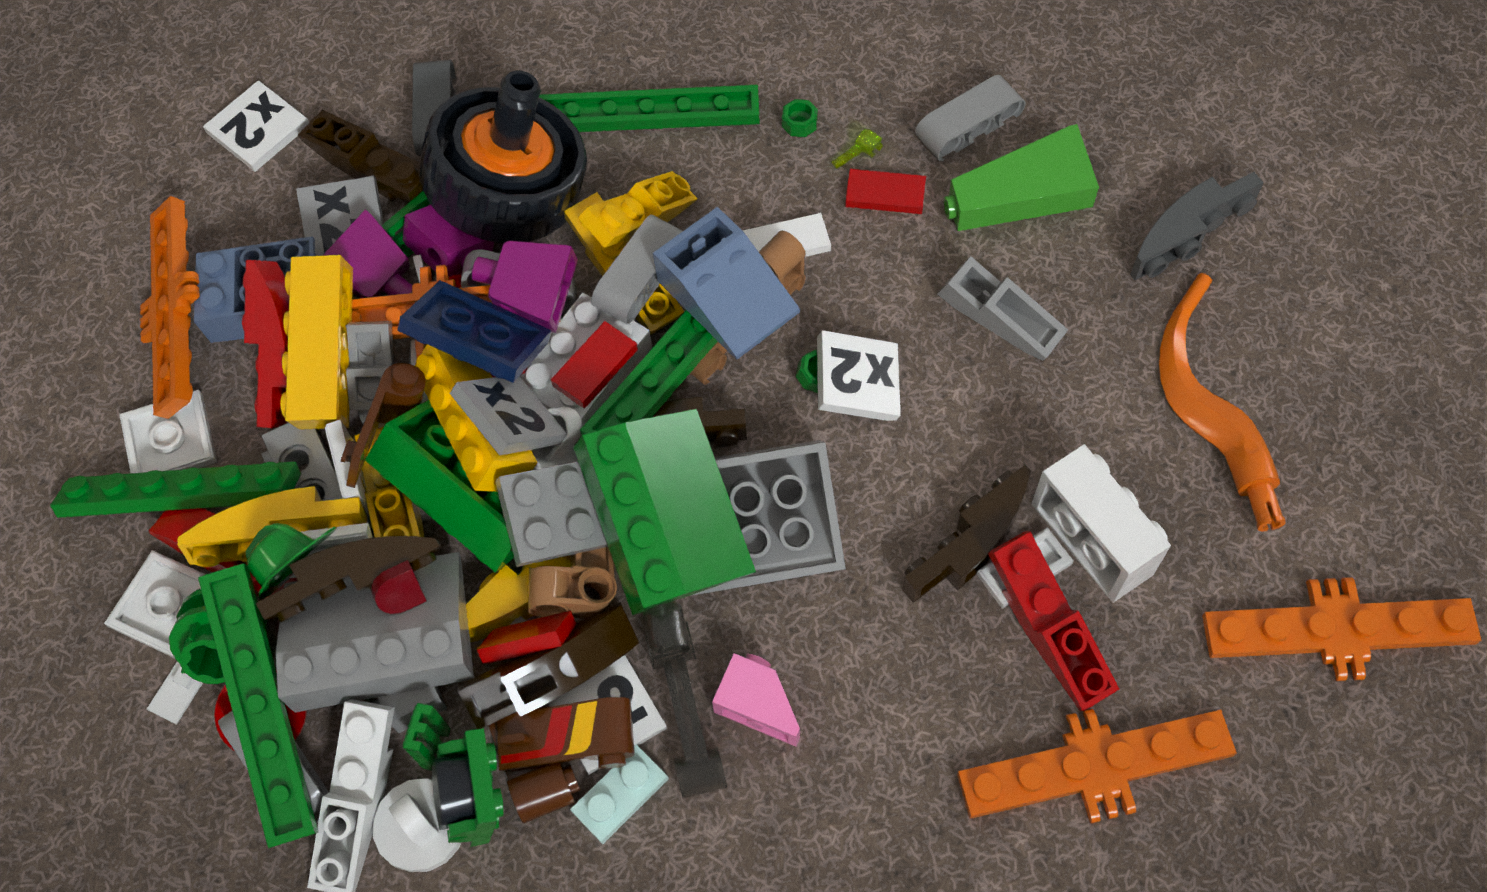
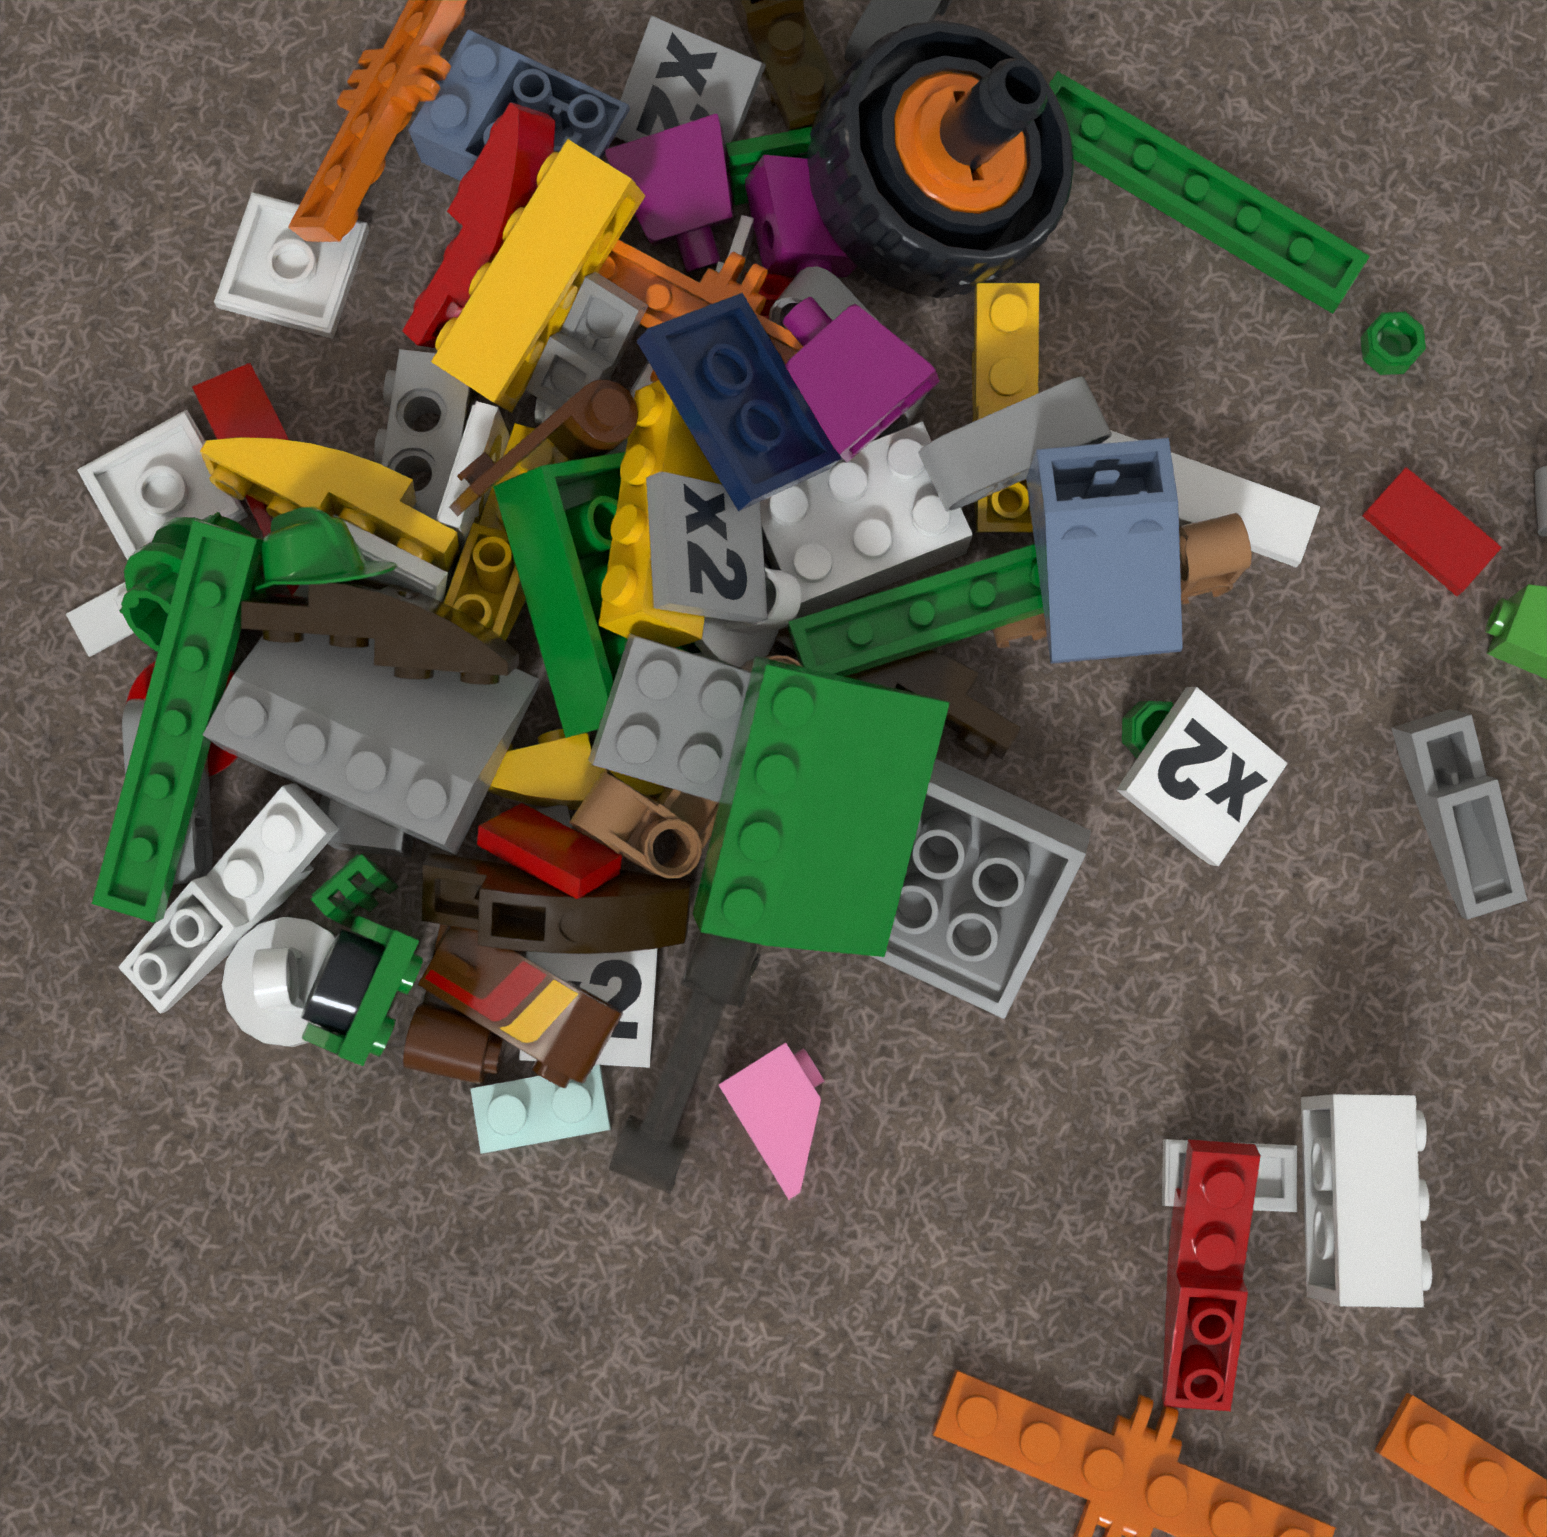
camera: 30 degrees right, 15 degrees up
(172, 489) = (256, 354): green plate -> none
(397, 589) = (424, 695): dark red tile -> none
(594, 364) = (866, 542): red tile -> none
(618, 218) = (1090, 346): yellow slope -> none
(865, 142) = (1457, 441): clear neon green hand -> none
(982, 527) = (1215, 1092): dark brown slope -> none

